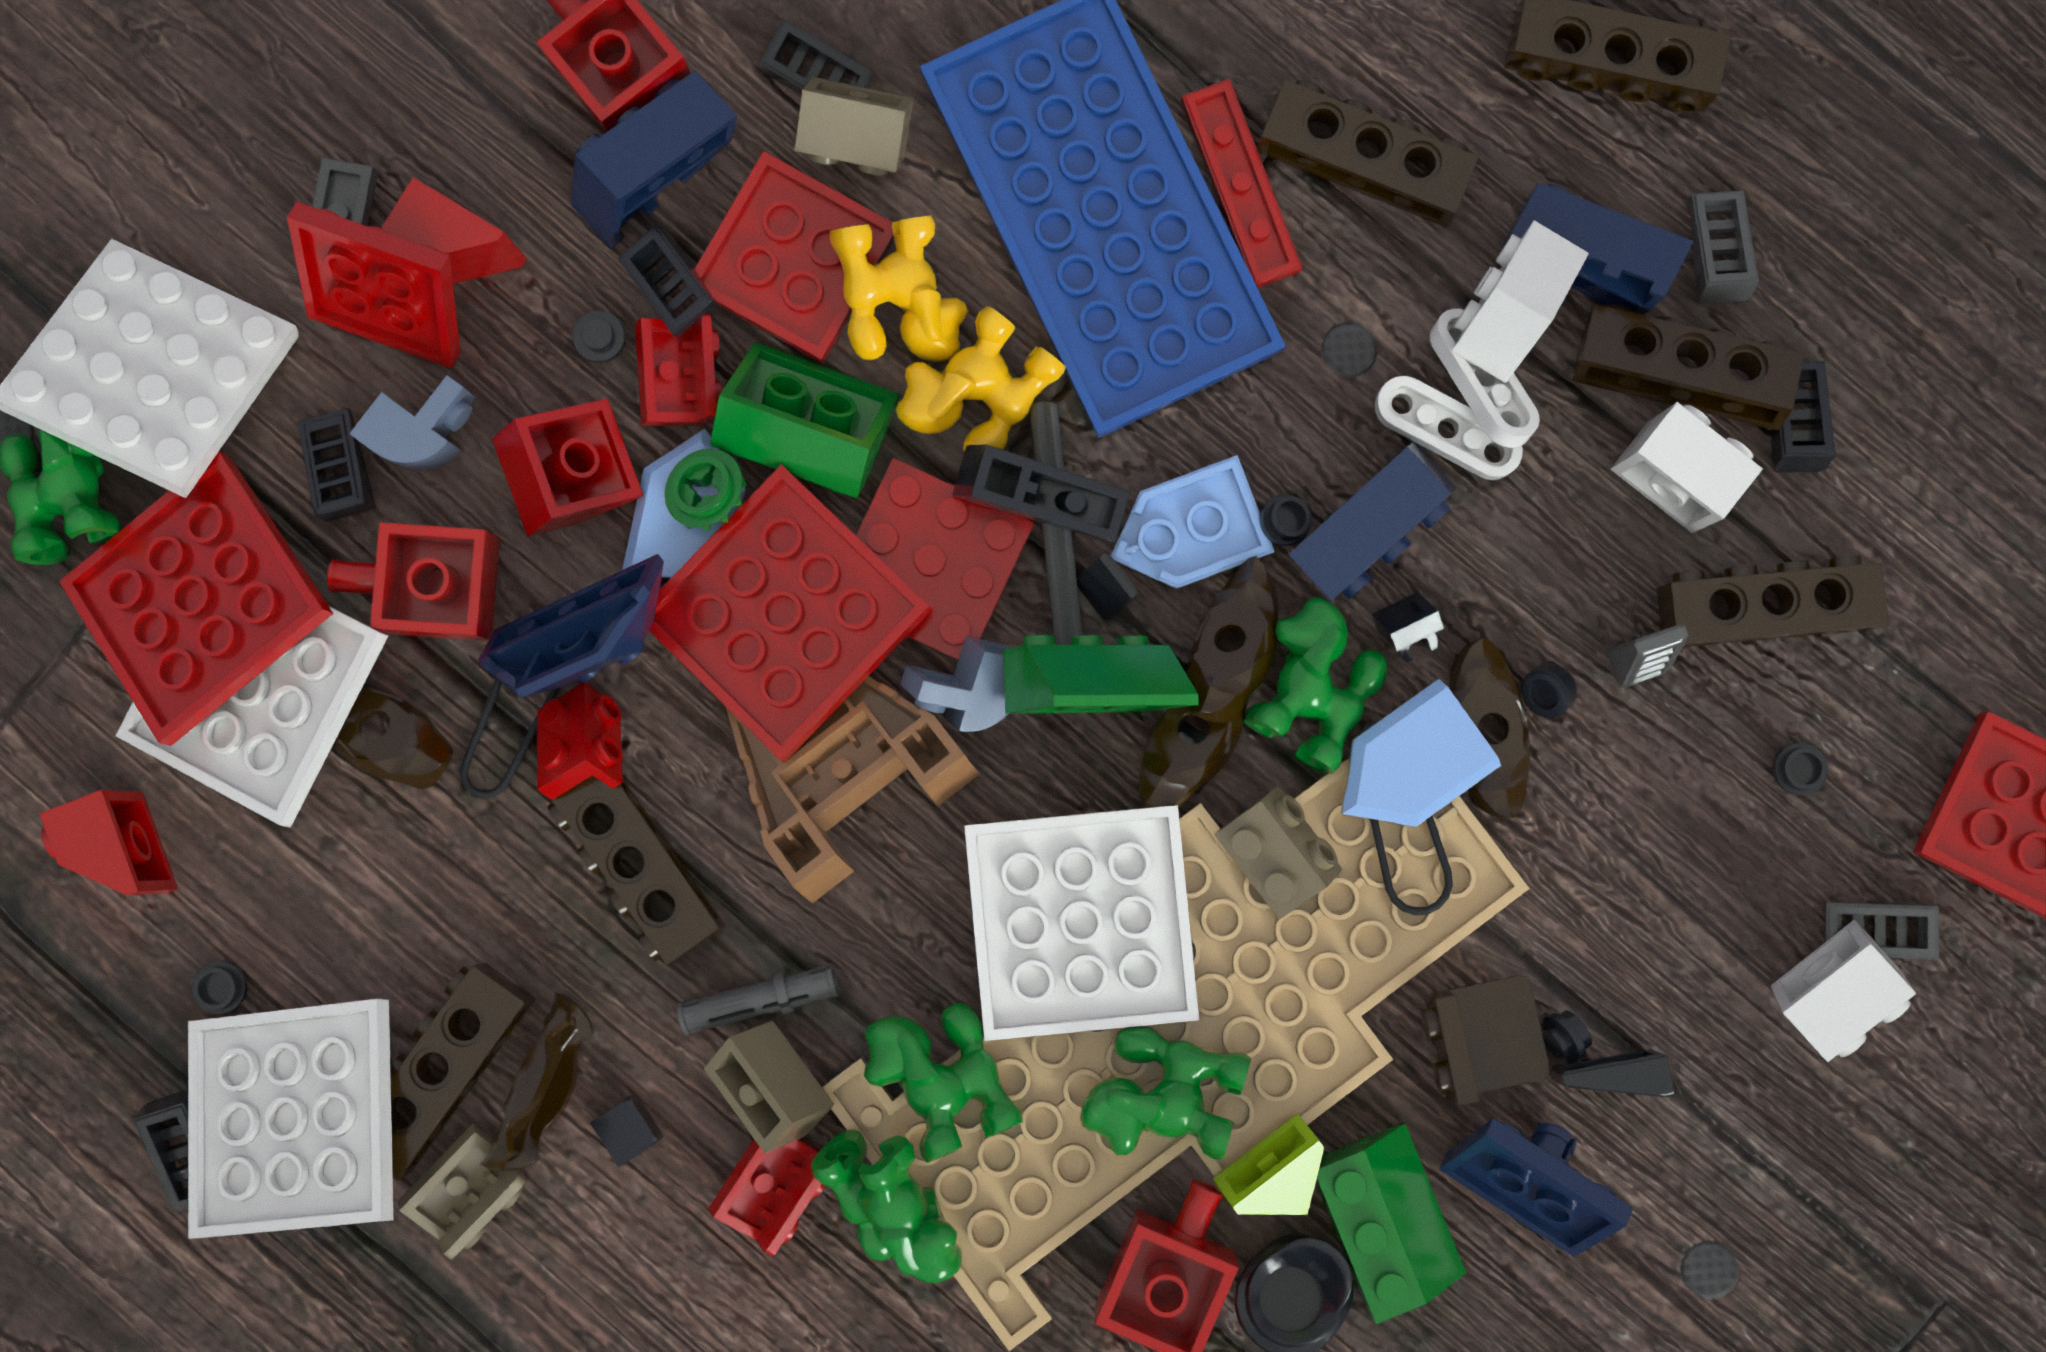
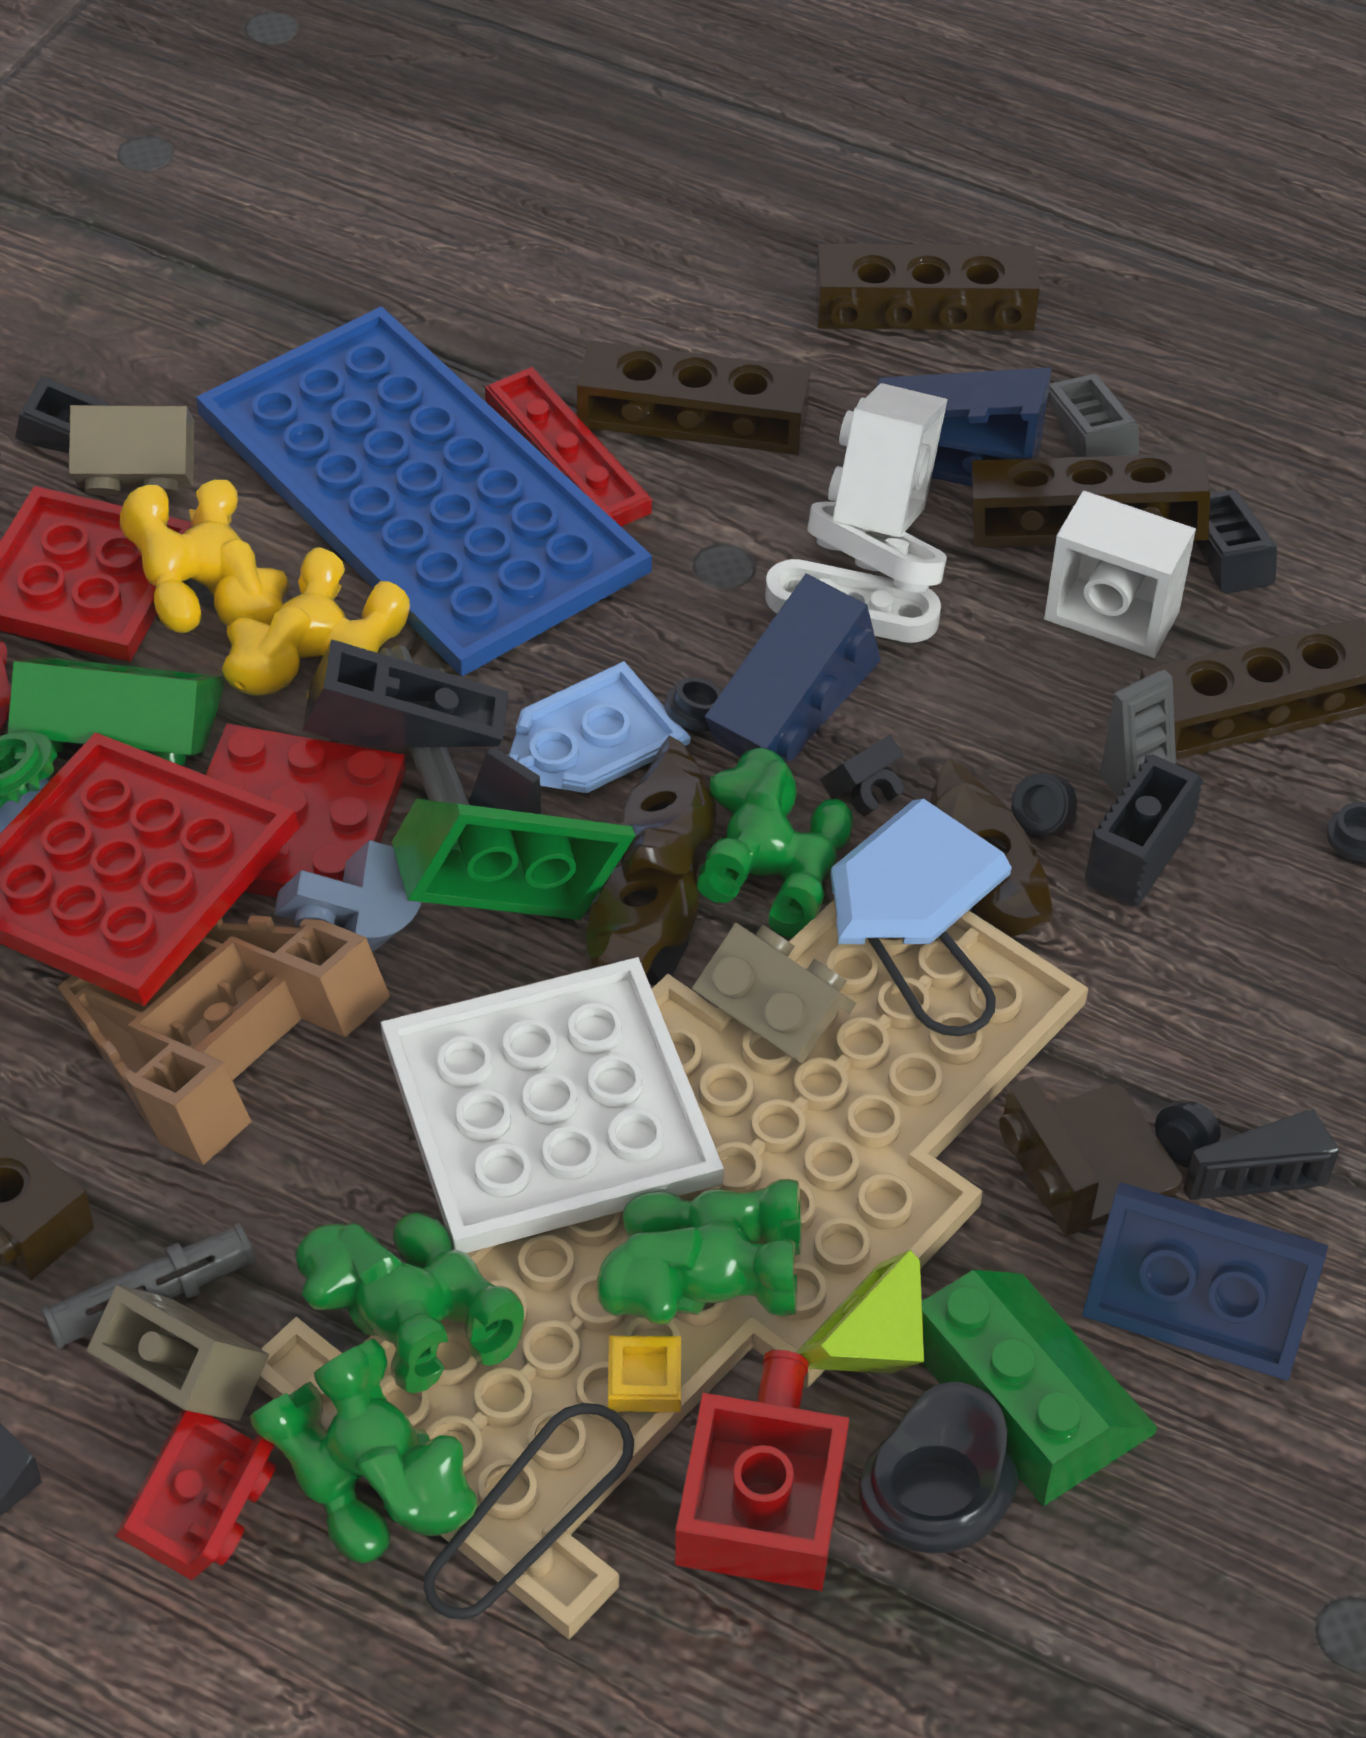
camera: 15 degrees left, 35 degrees down
(1020, 1275) = (551, 1536): none -> black piece
(1101, 1171) = (644, 1373): none -> yellow tile
(1621, 747) = (1143, 830): none -> black brick

